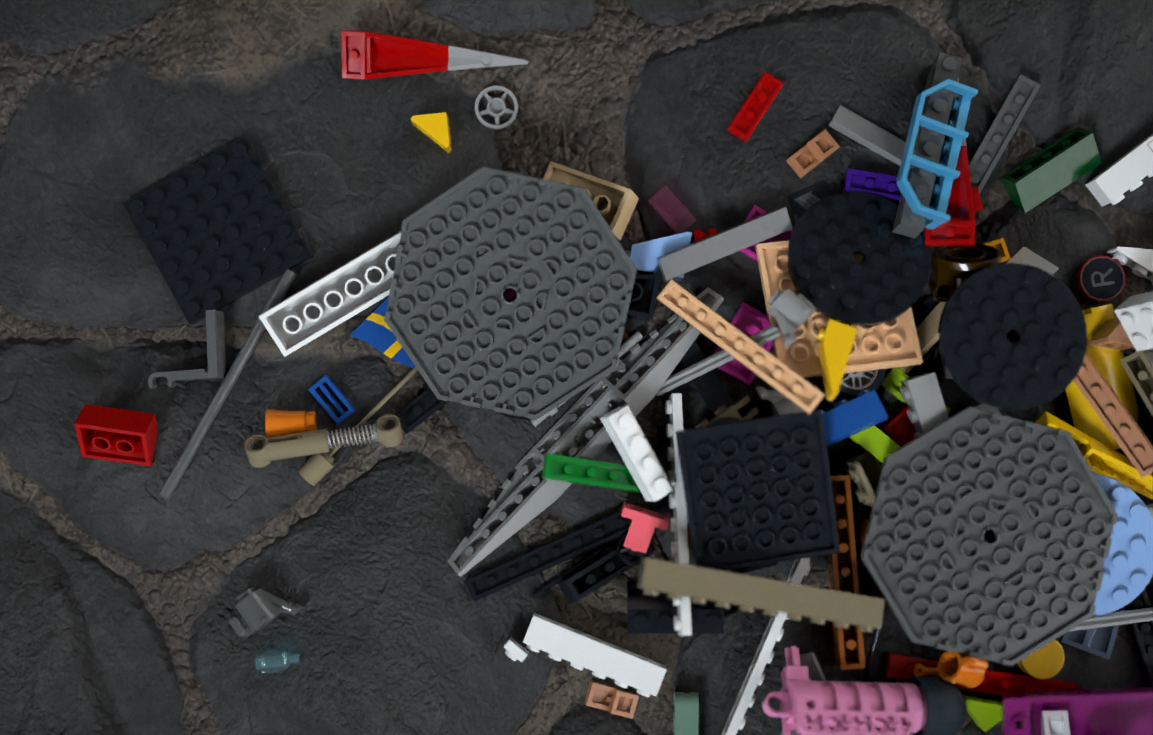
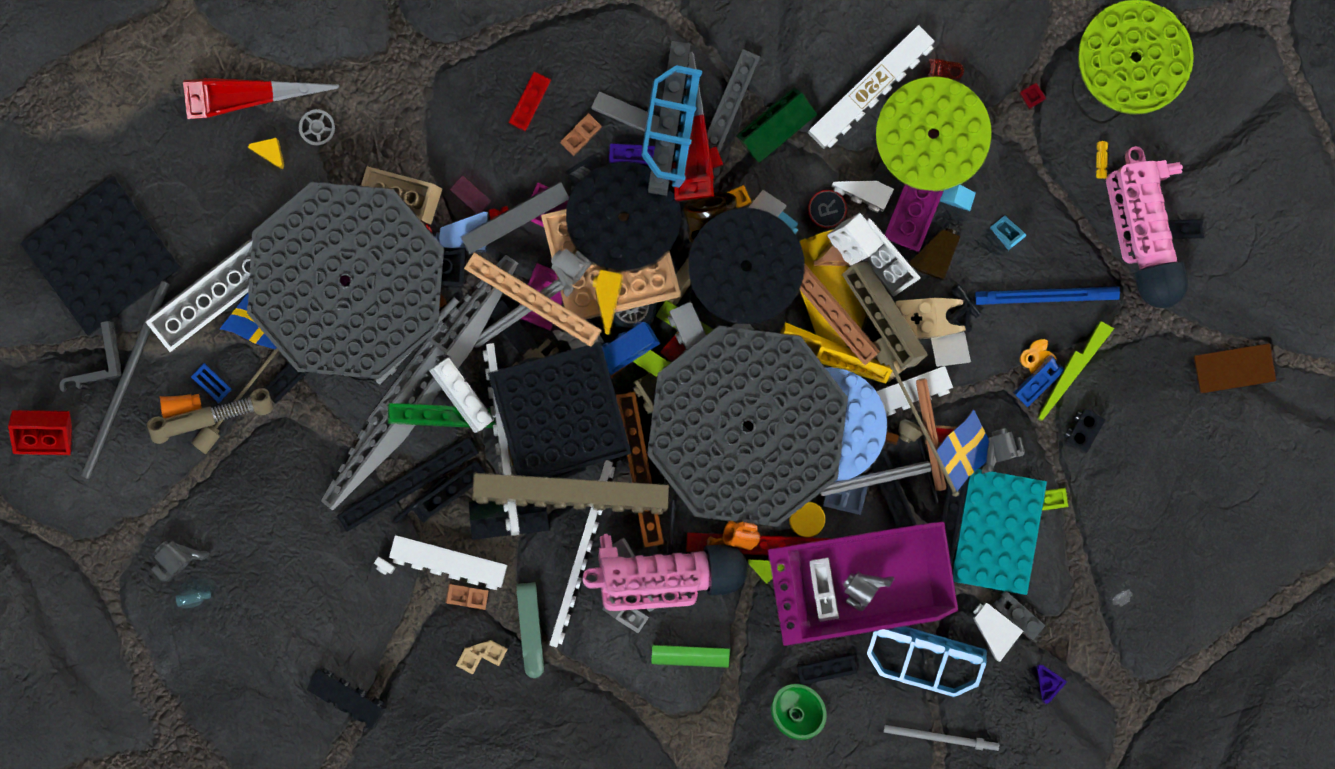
camera: 10 degrees left, 0 degrees up
(640, 531) = (472, 457): coral piece -> none

